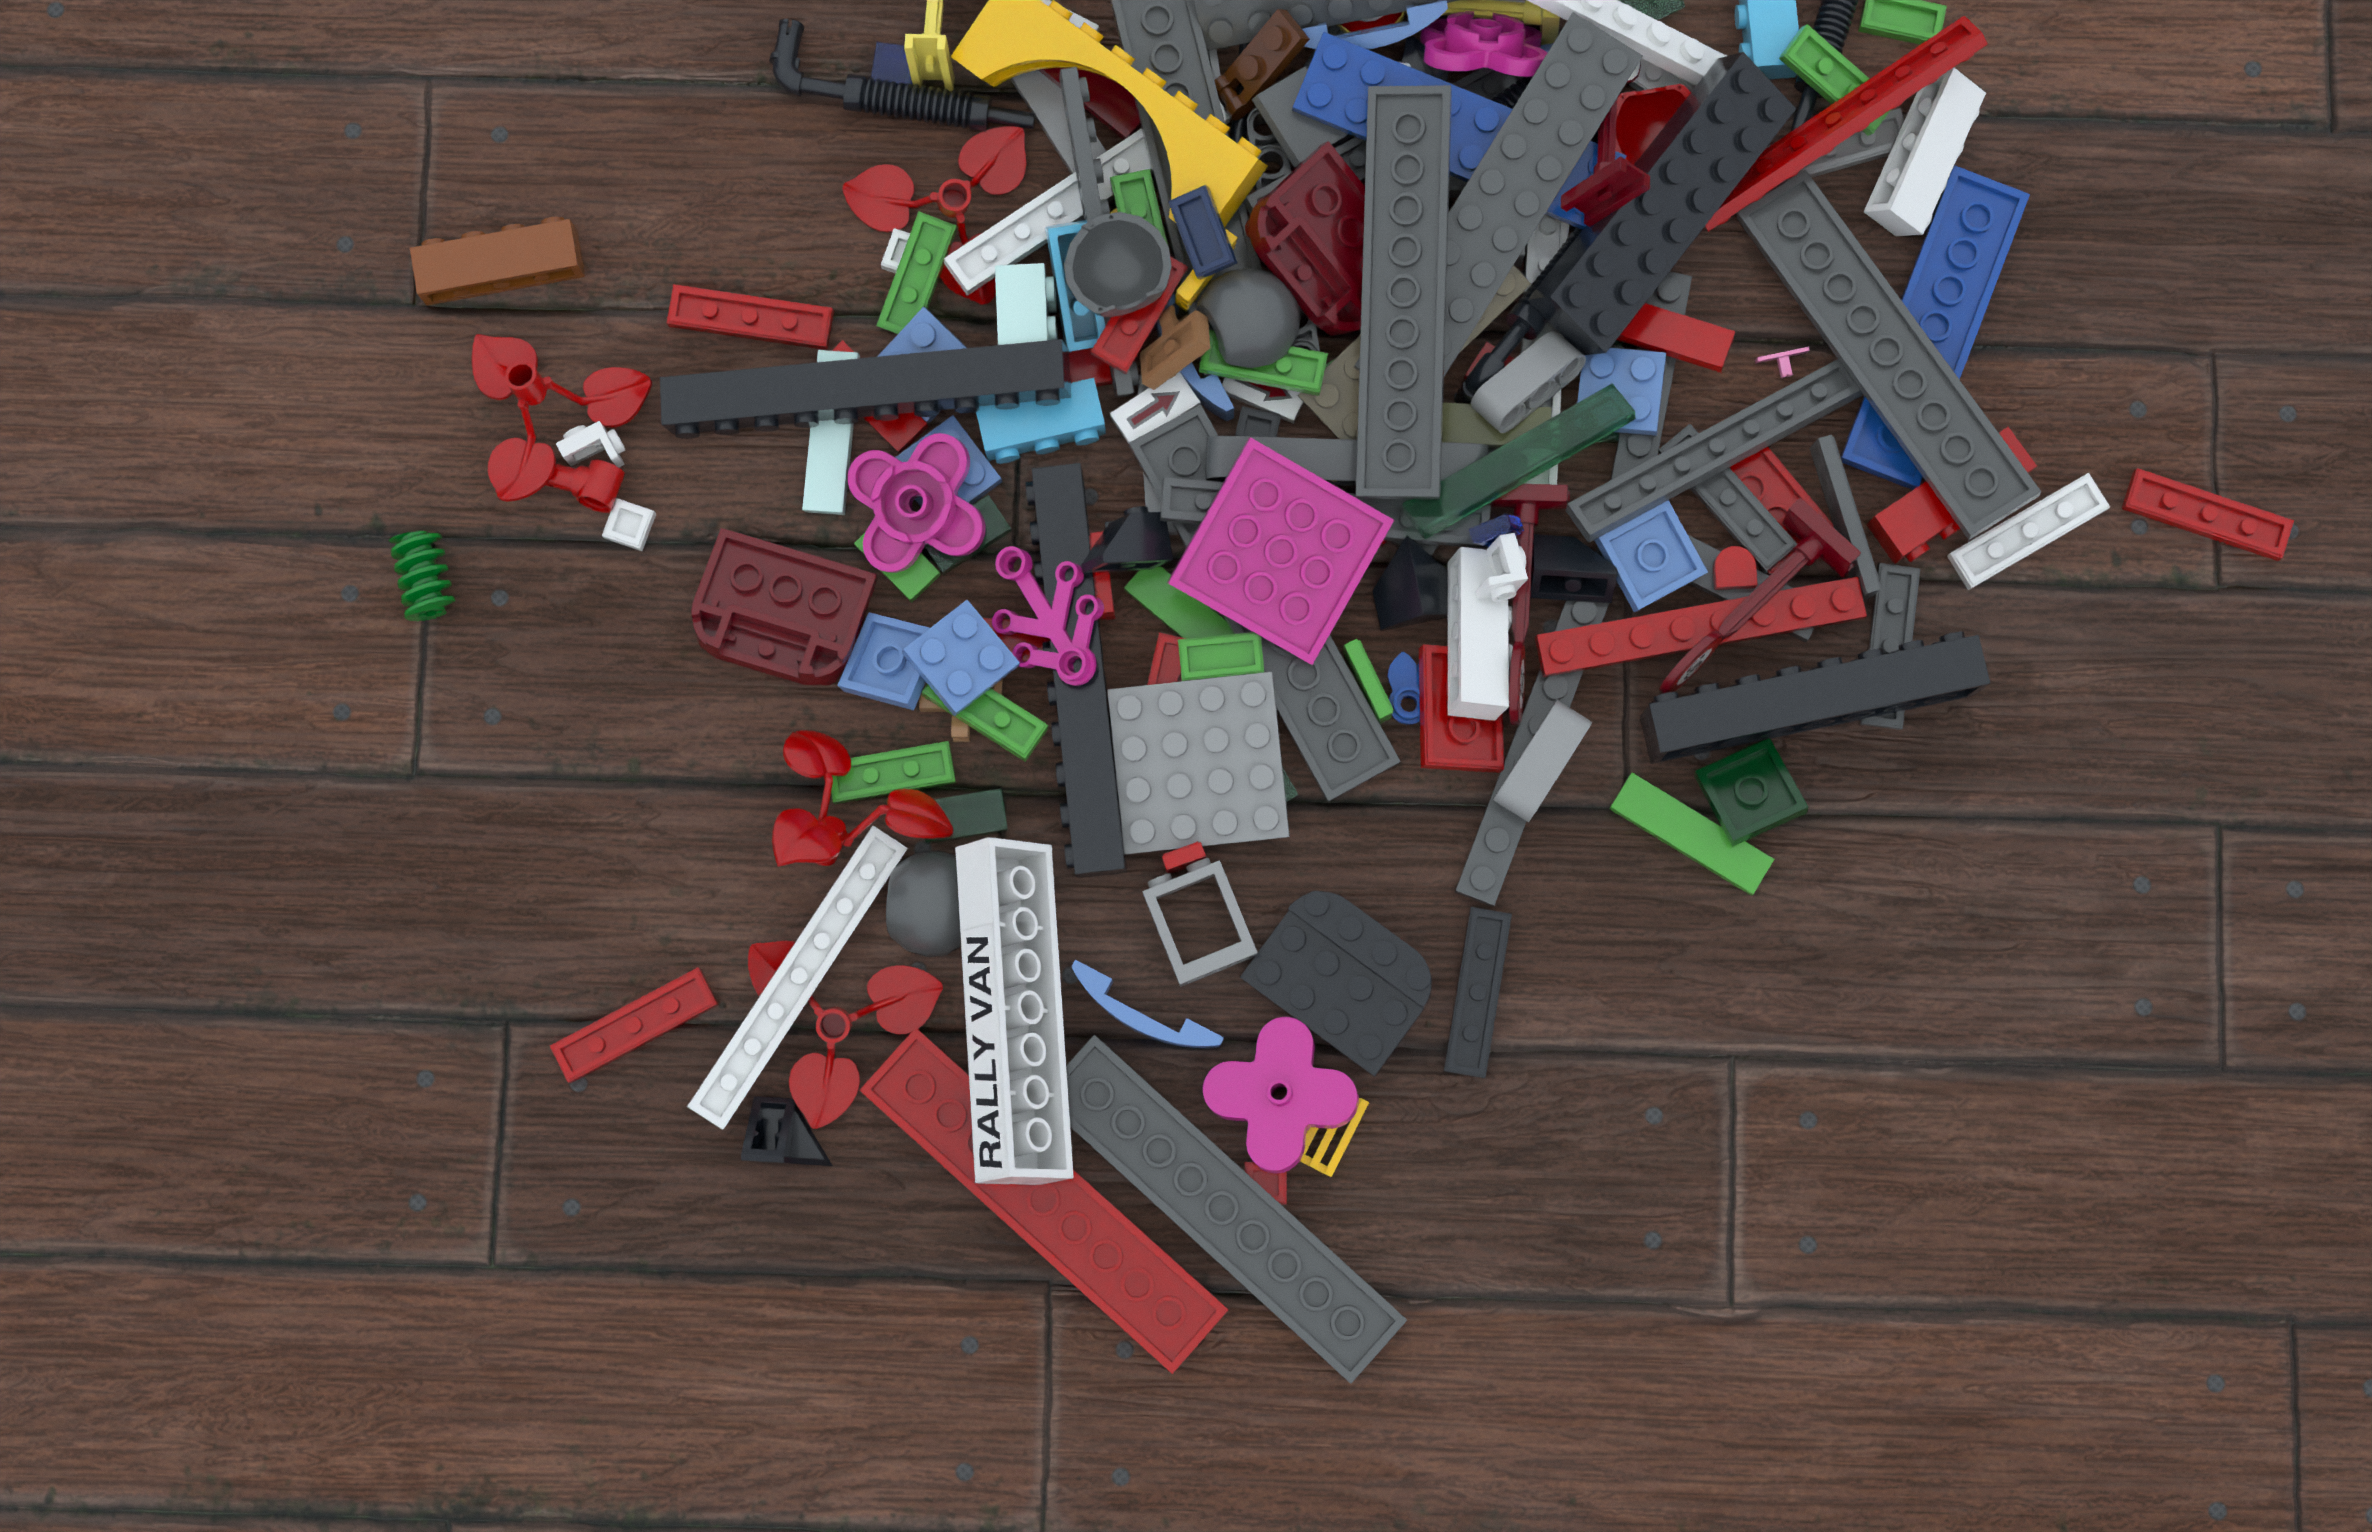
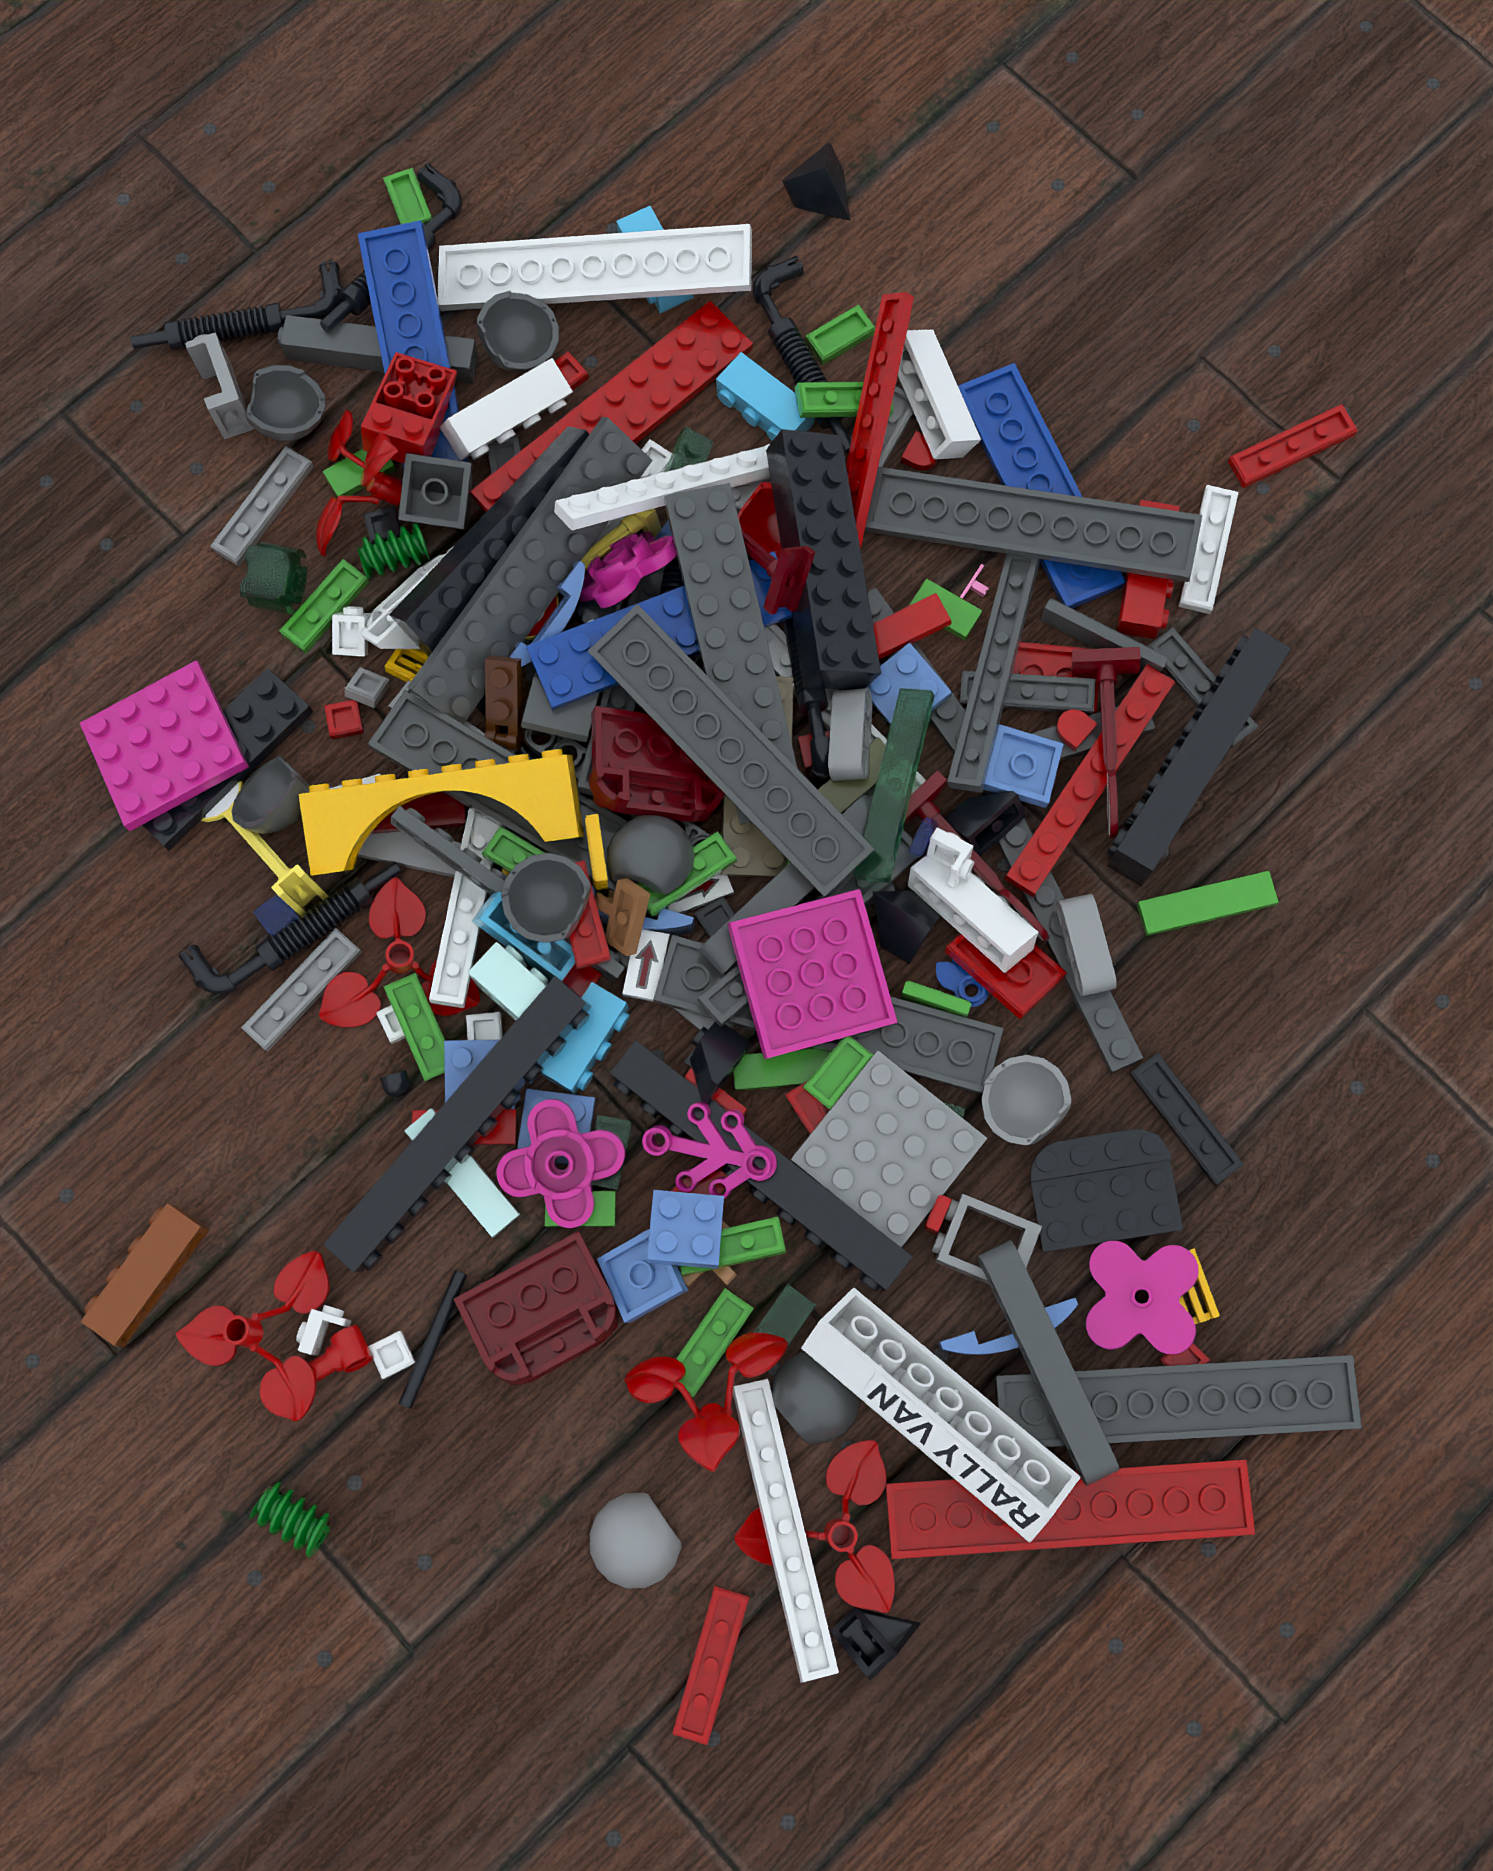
camera: 45 degrees left, 5 degrees down
(670, 867) = (633, 1542): none -> light grey cylinder
(673, 545) = (432, 1339): none -> black bar
(750, 317) = (339, 1152): red tile -> none
(850, 305) = (395, 1084): none -> black hinge
(852, 148) = (301, 990): none -> light grey tile
(971, 328) = (484, 1026): none -> white tile
(1143, 1063) = (1048, 1363): none -> dark grey beam
(1202, 232) = (575, 830): dark blue tile -> none
(1352, 836) = (1025, 1099): none -> light grey cylinder
(1741, 369) = (962, 614): none -> bright green tile
(1751, 792) = (1217, 845): dark green plate -> none
(1855, 193) = (918, 453): none -> red tile

